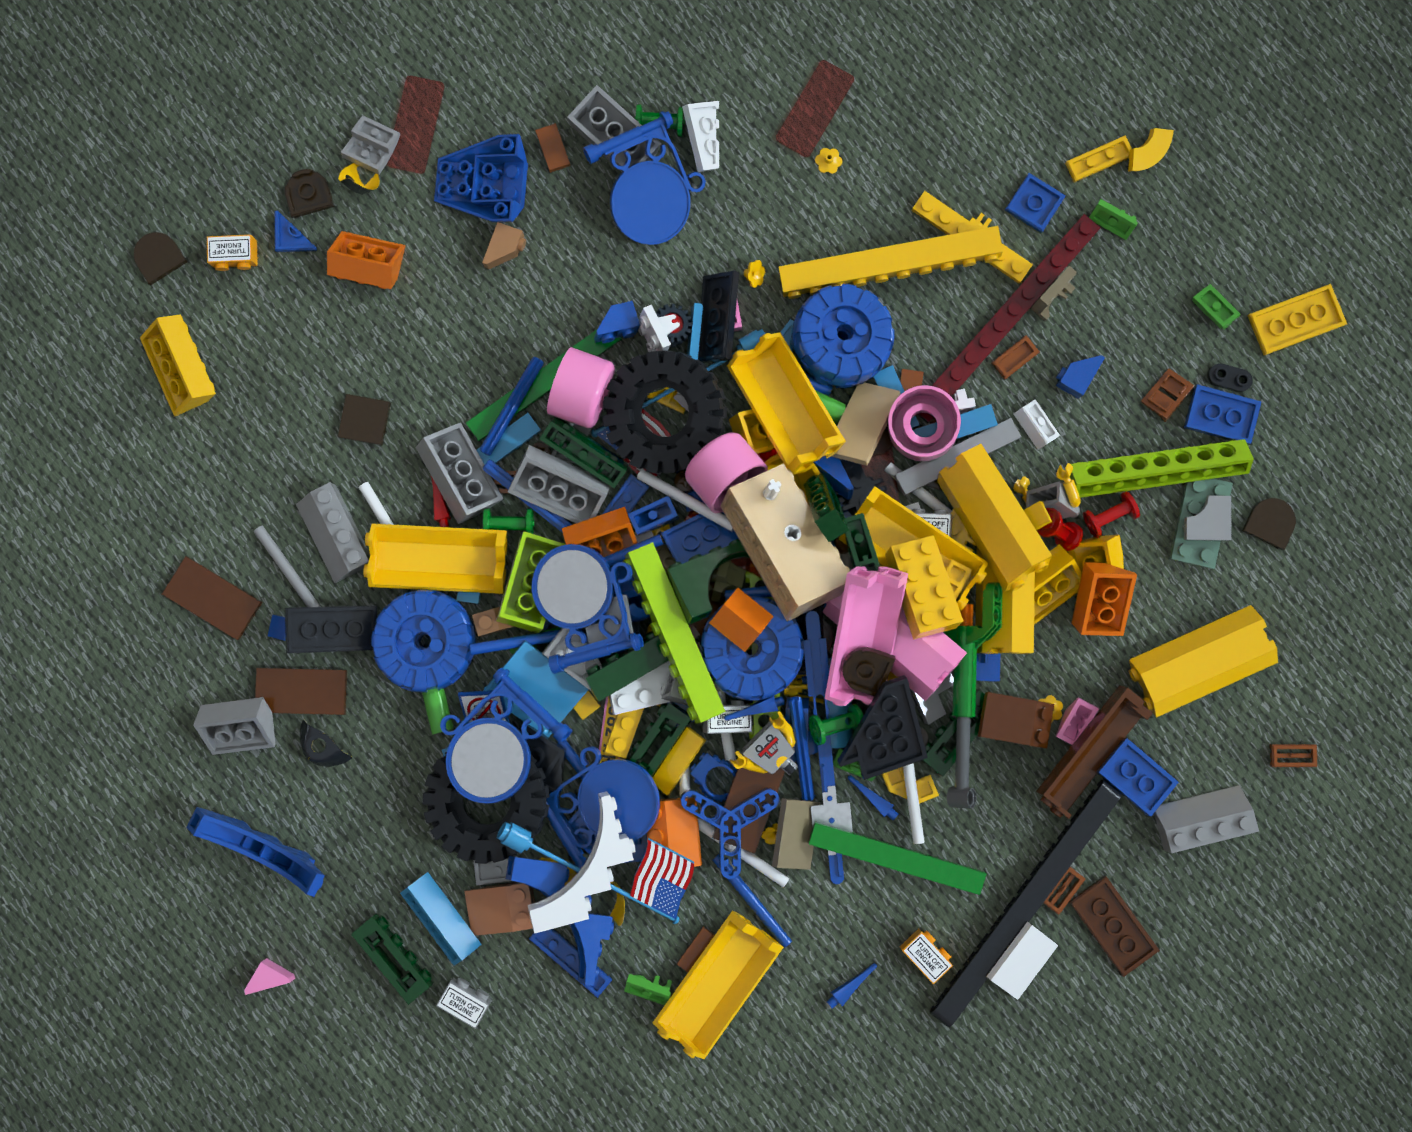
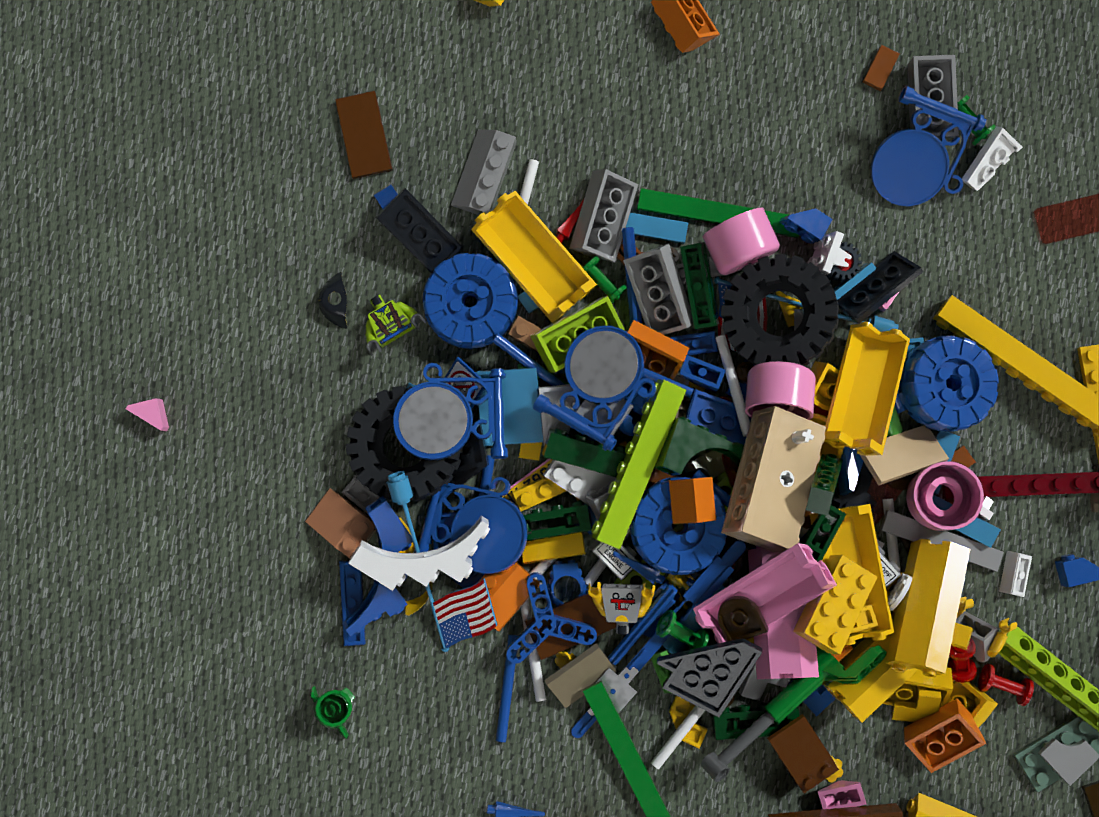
camera: 45 degrees right, 0 degrees up
(236, 726) = (295, 231): light grey slope -> none
(261, 847) = (231, 324): blue arch -> none
(285, 567) = (430, 162): light grey piece -> none
(302, 690) = (358, 252): reddish brown tile -> none
(364, 419) = (577, 119): dark brown tile -> none
(379, 720) = (389, 322): none -> torso
(407, 959) = (240, 515): dark green brick -> none
(437, 709) = (432, 353): bright green pin -> none
(440, 918) = (297, 490): dark azure brick -> none
(464, 1002) = (257, 559): brick -> none
(485, 179) = (816, 43): blue wedge -> none
(504, 245) = (784, 98): medium nougat slope -> none
(511, 406) = (682, 207): blue axle -> none
(637, 1052) = (333, 708): none -> green piece
(641, 987) = (381, 676): bright green plate -> none
(695, 949) = (439, 685): dark orange tile -> none
(717, 985) = (428, 720): yellow panel -> none
(755, 273) = (930, 284): yellow plant -> none
(828, 165) = (1055, 259): yellow plant -> none
(880, 804) = (655, 714): blue piece -> none
(961, 528) = (898, 591): none -> white wheel
(1015, 357) = (1047, 515): dark orange tile -> none
(1064, 605) = (926, 704): none -> yellow tile

